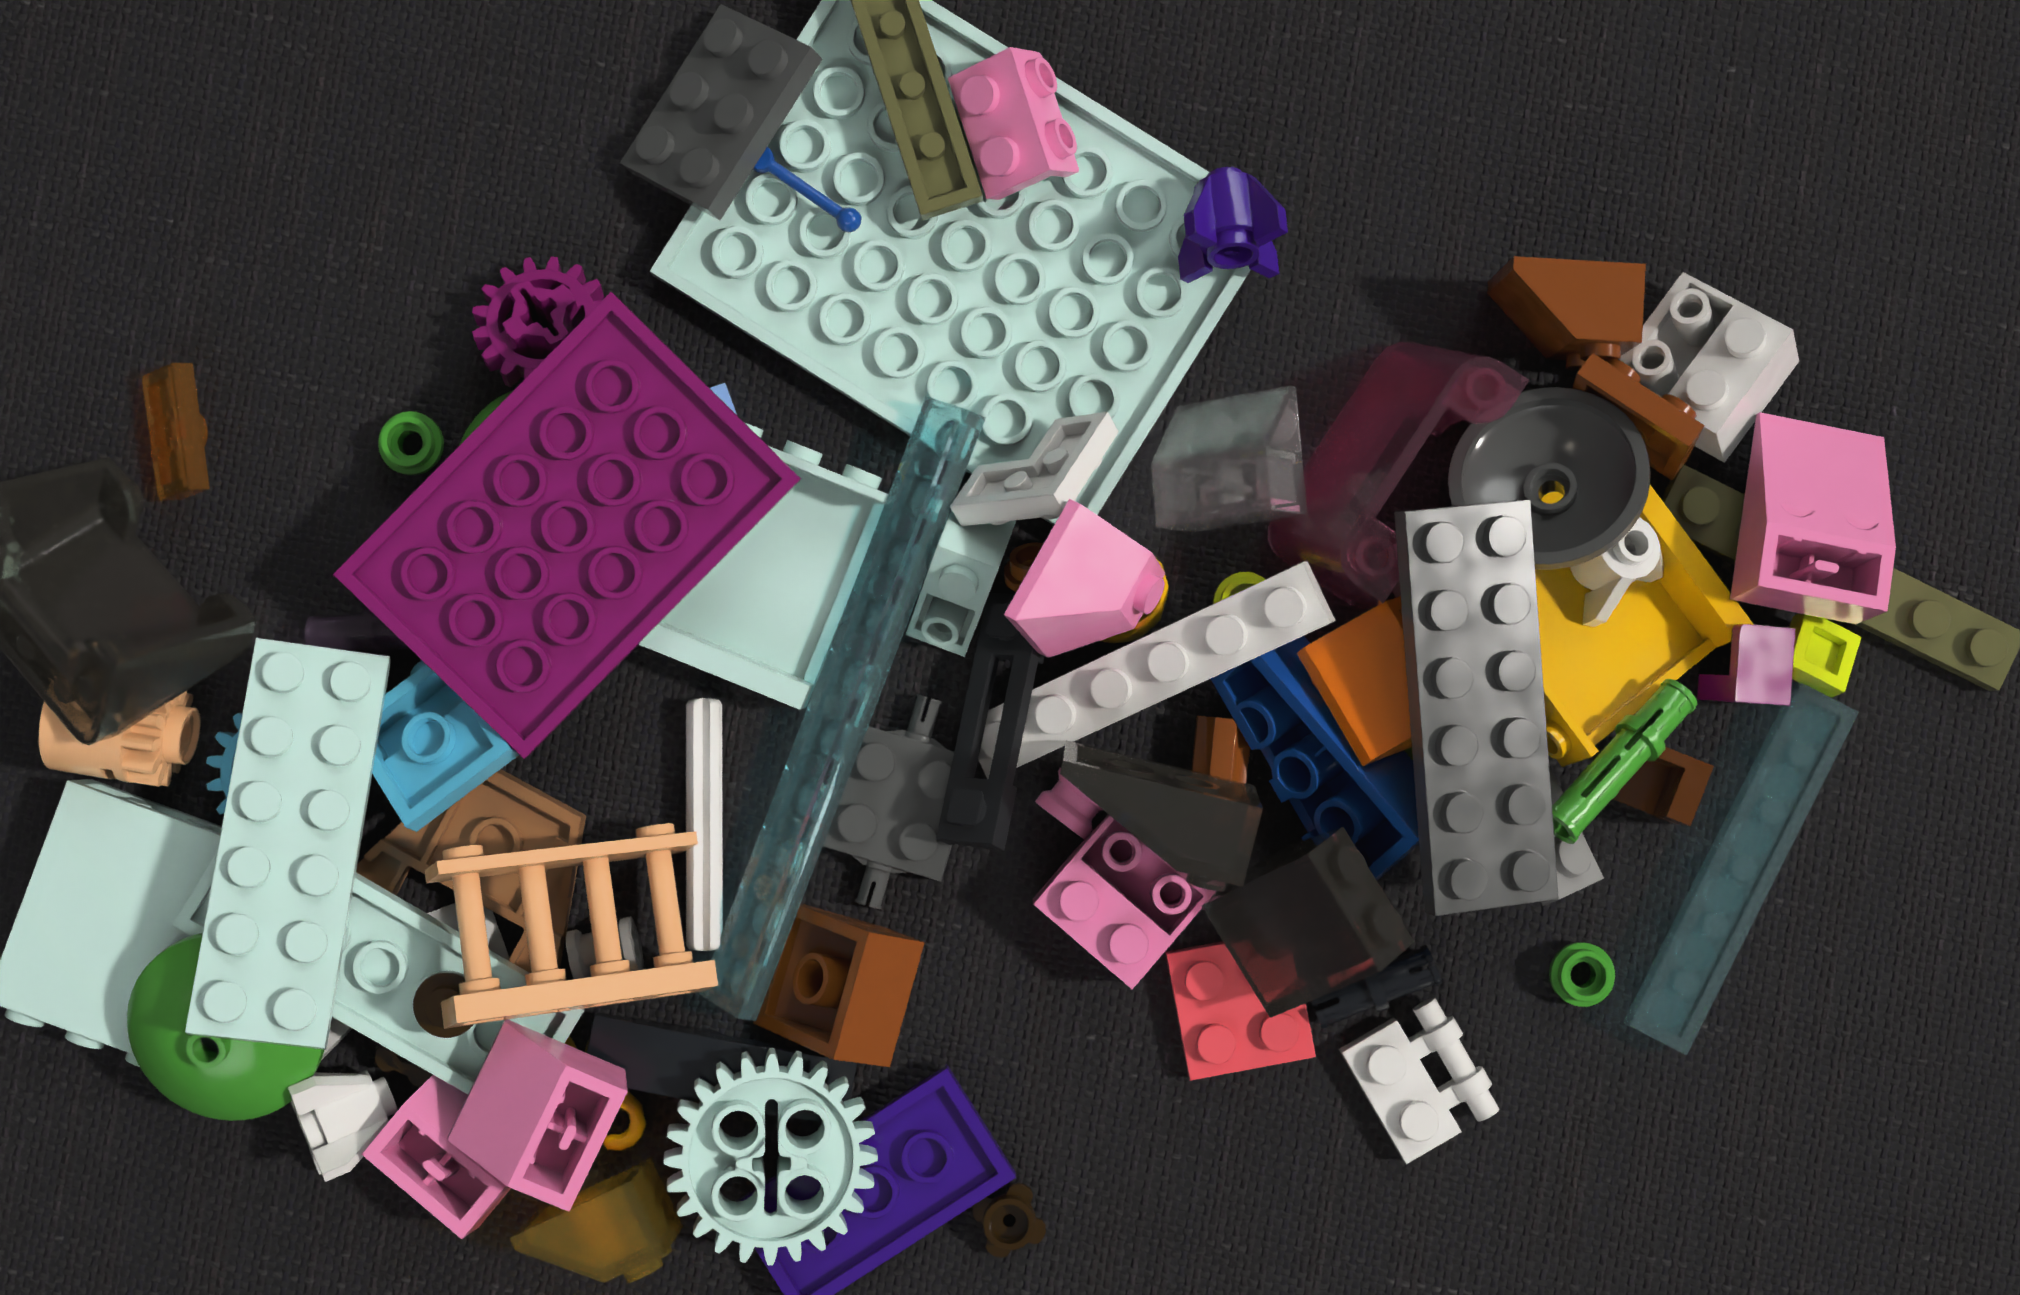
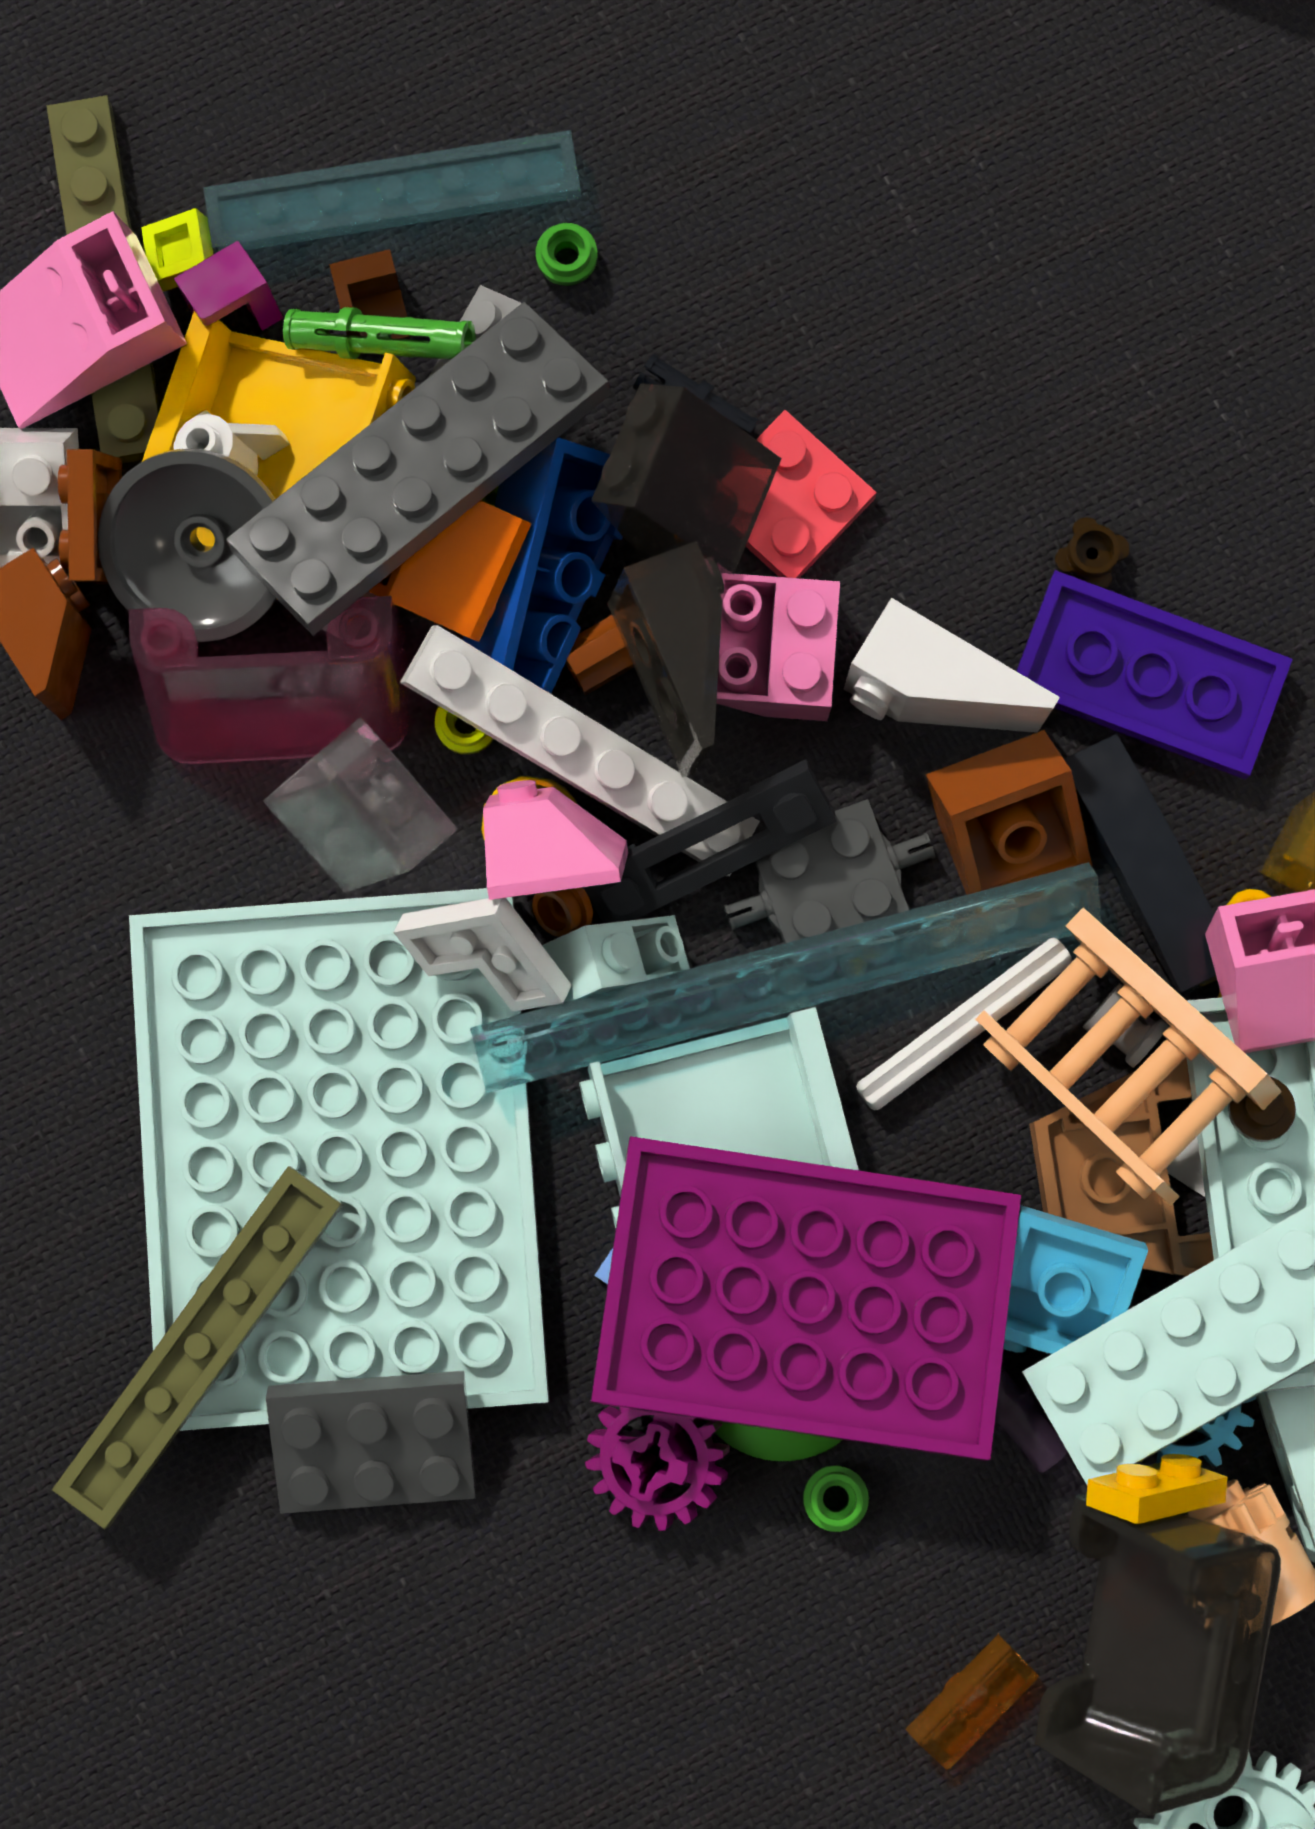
camera: 125 degrees left, 5 degrees down
(211, 688) = (1157, 1490): none -> yellow plate
(713, 1156) = (1221, 811): light aqua gear -> none
(847, 218) = (386, 1266): blue hinge -> none
(1002, 1005) = (934, 677): none -> white slope
(1014, 121) = (208, 1187): bright pink bracket -> none
(1069, 806) = (730, 743): bright pink wheel -> none
(1231, 226) = (168, 945): dark purple brick -> none
(1402, 1090) = (761, 325): white plate -> none

